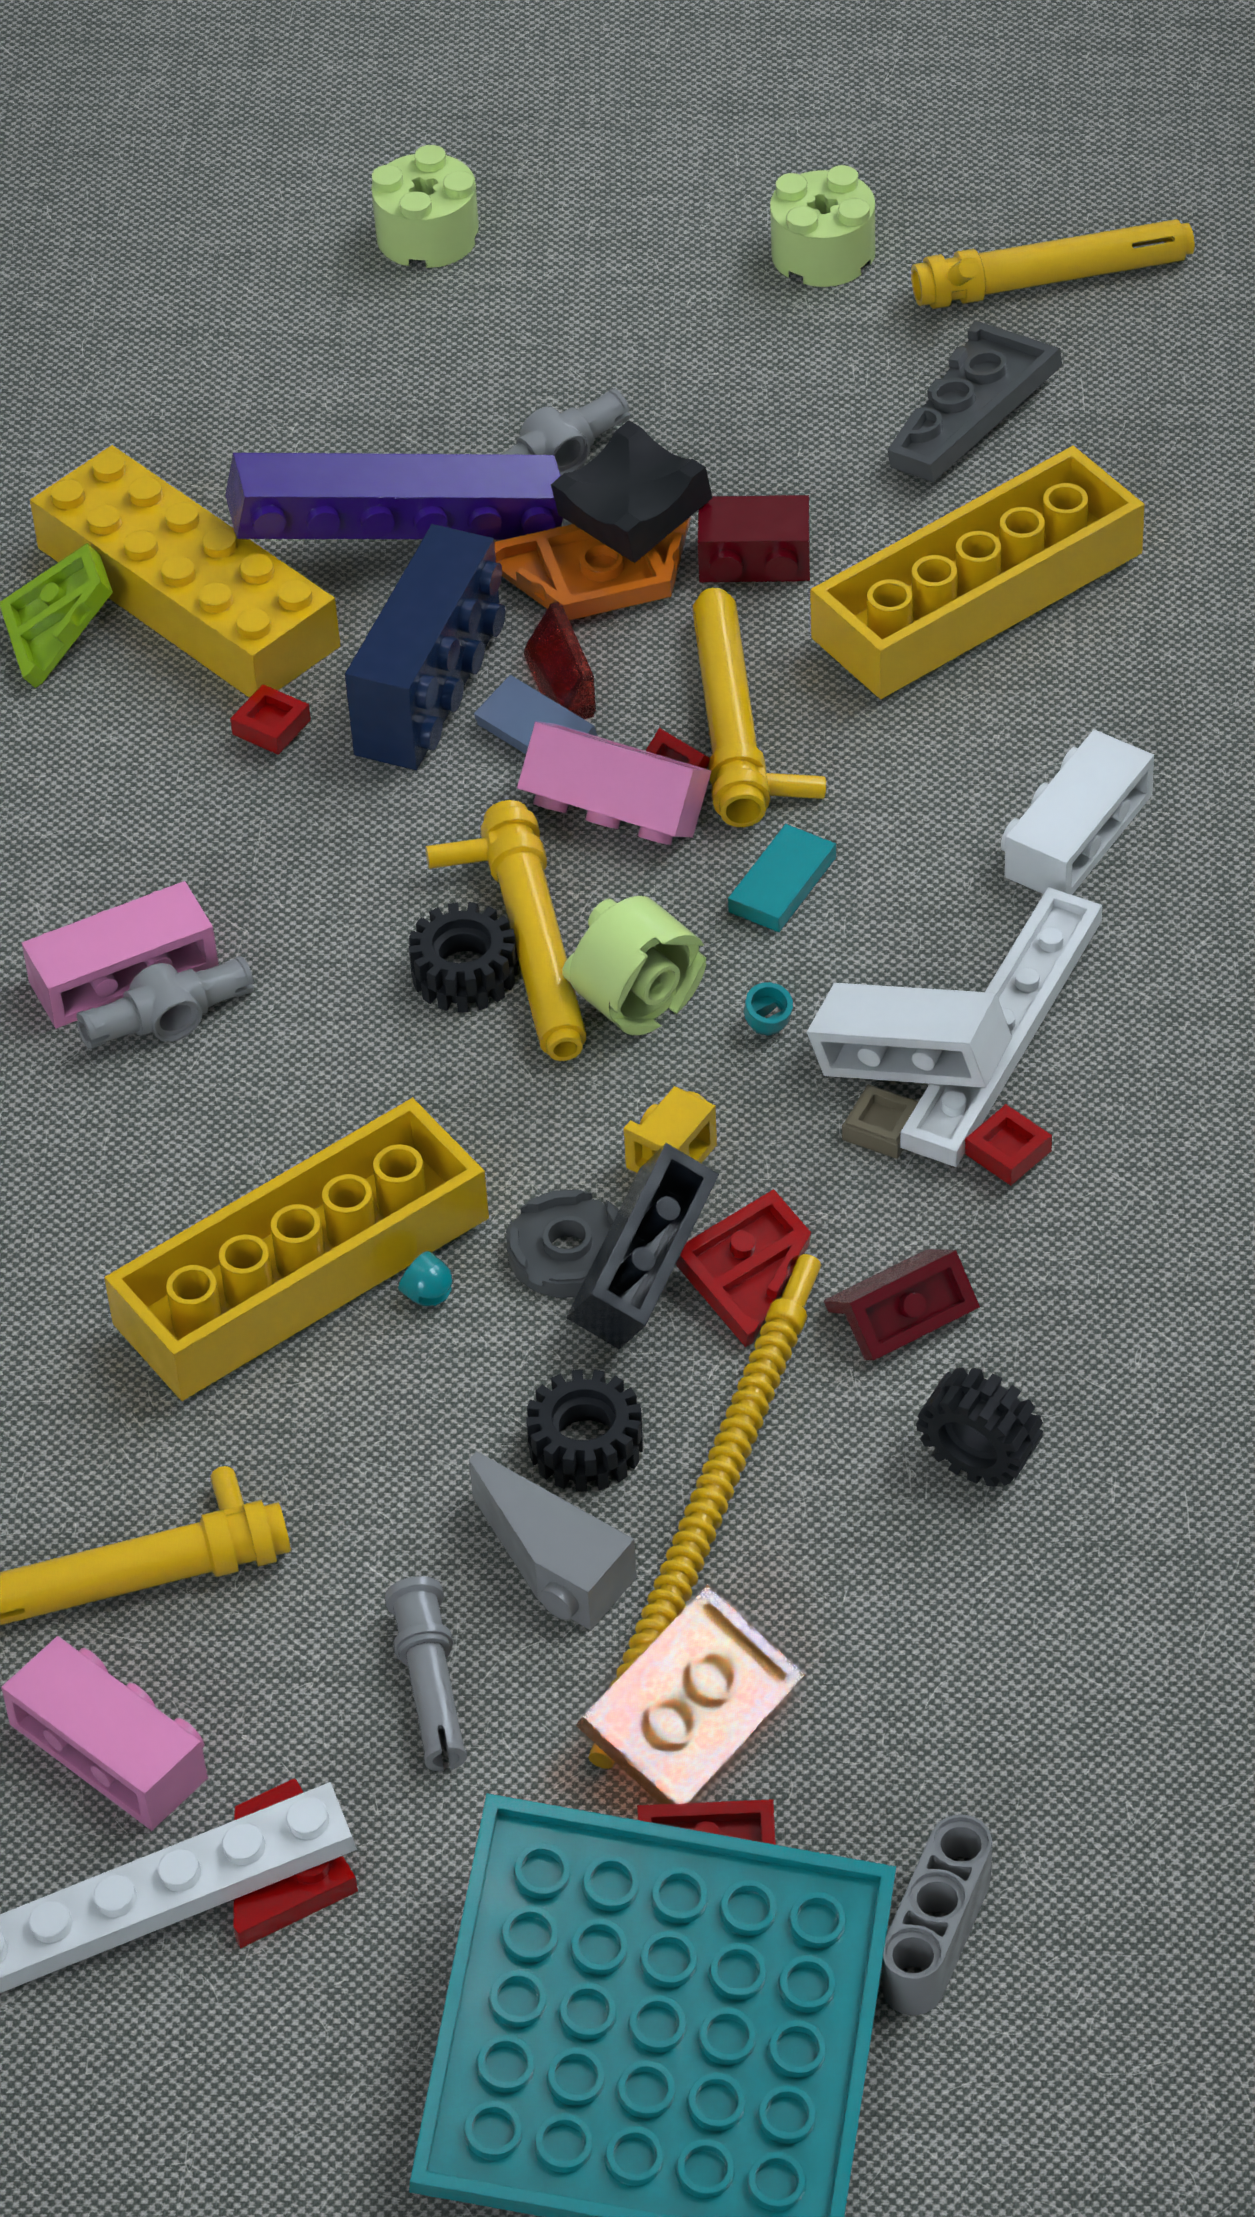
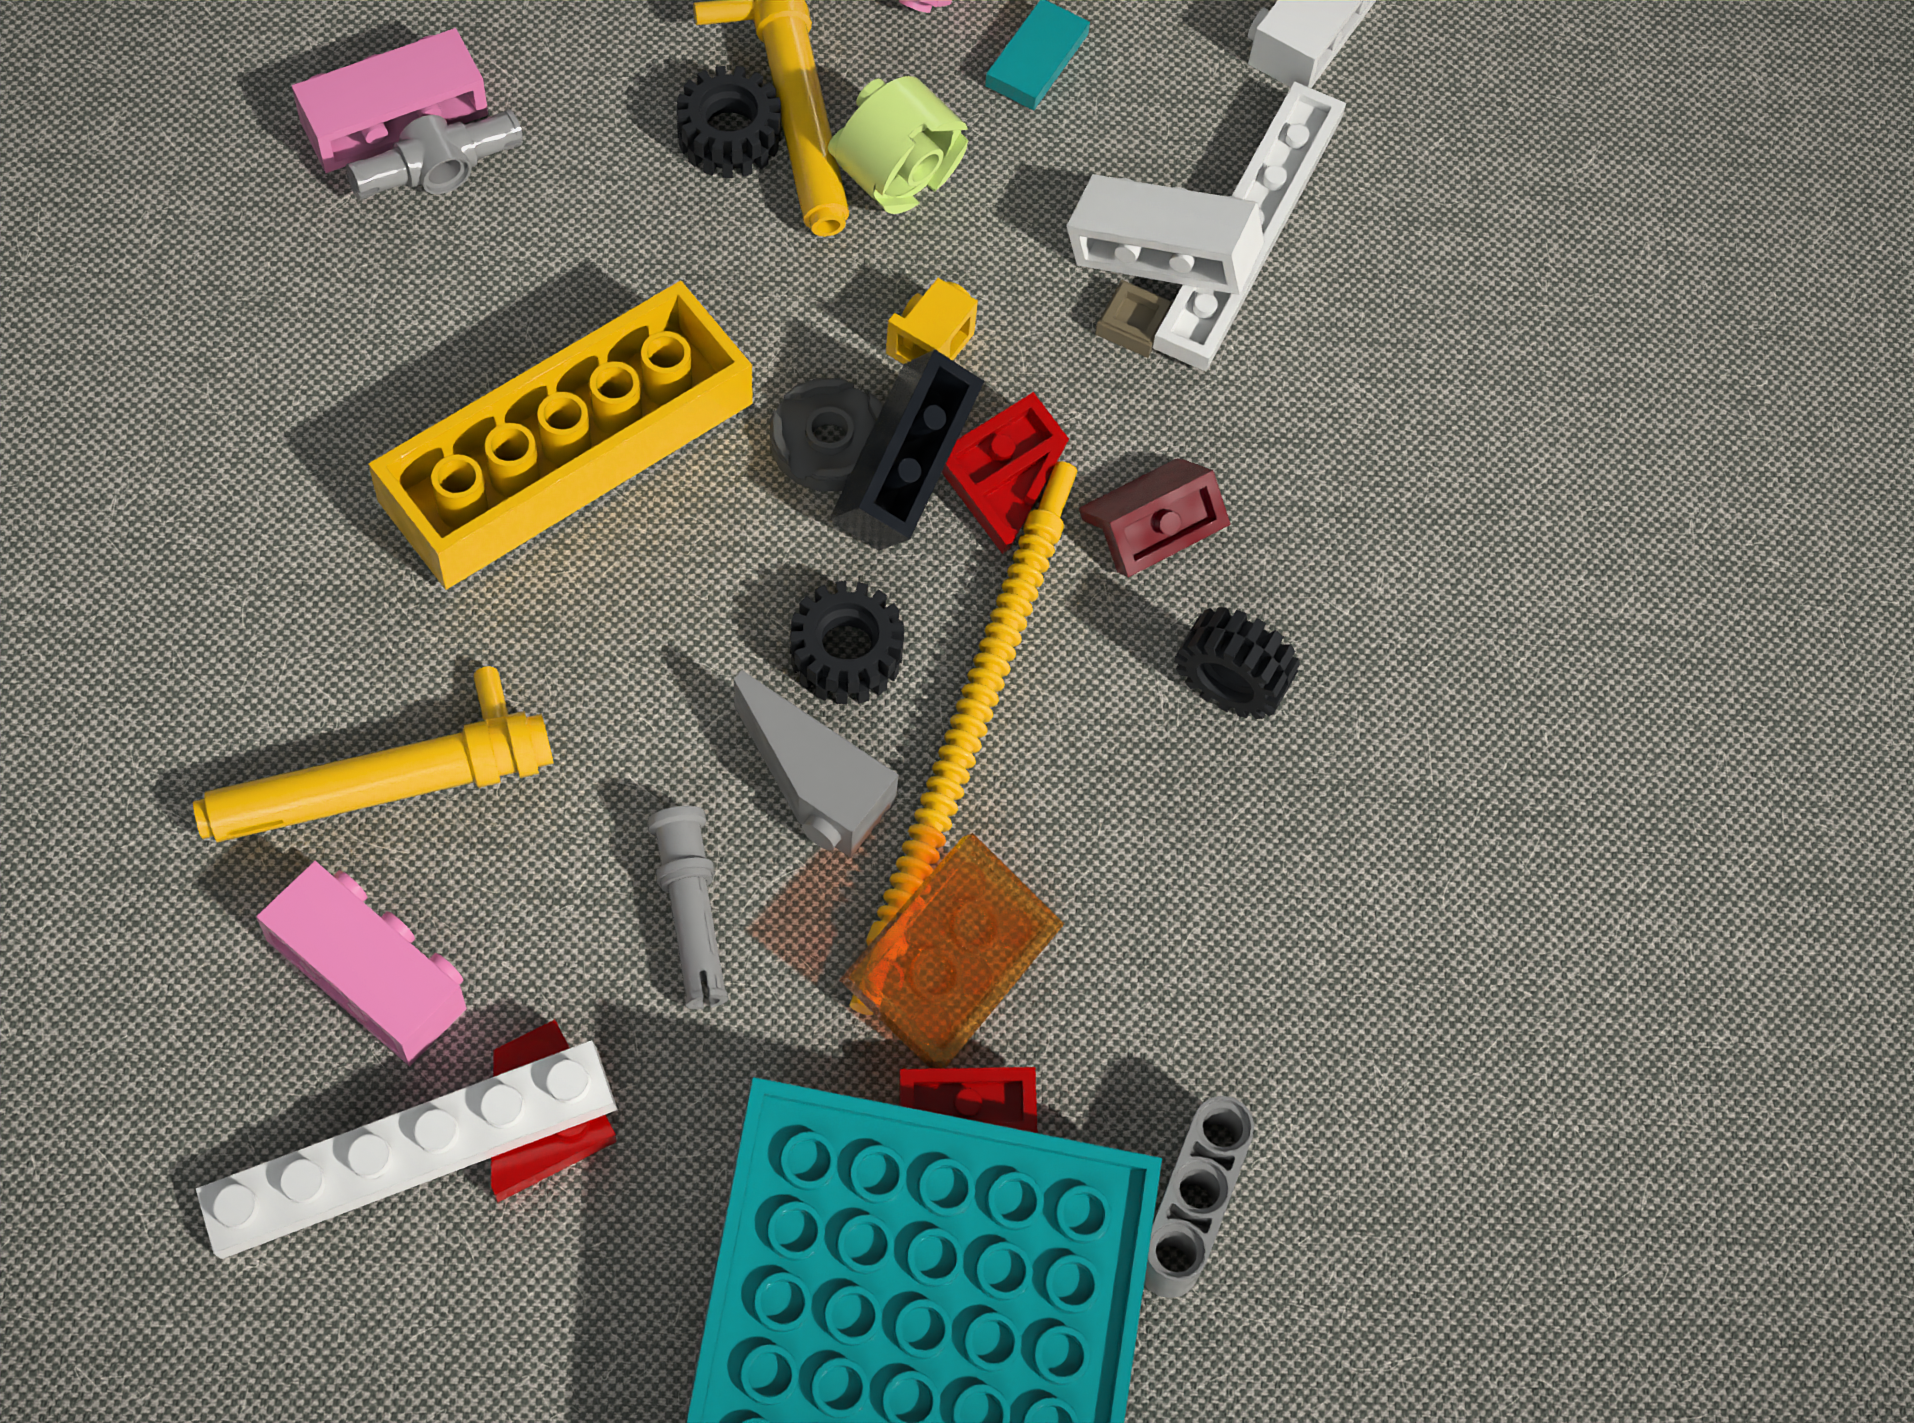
camera: 10 degrees left, 15 degrees up
(426, 1280) = (691, 471): teal hinge -> none
(762, 1001) = (1019, 185): teal hinge -> none
(1008, 1144) = (1257, 352): red plate -> none

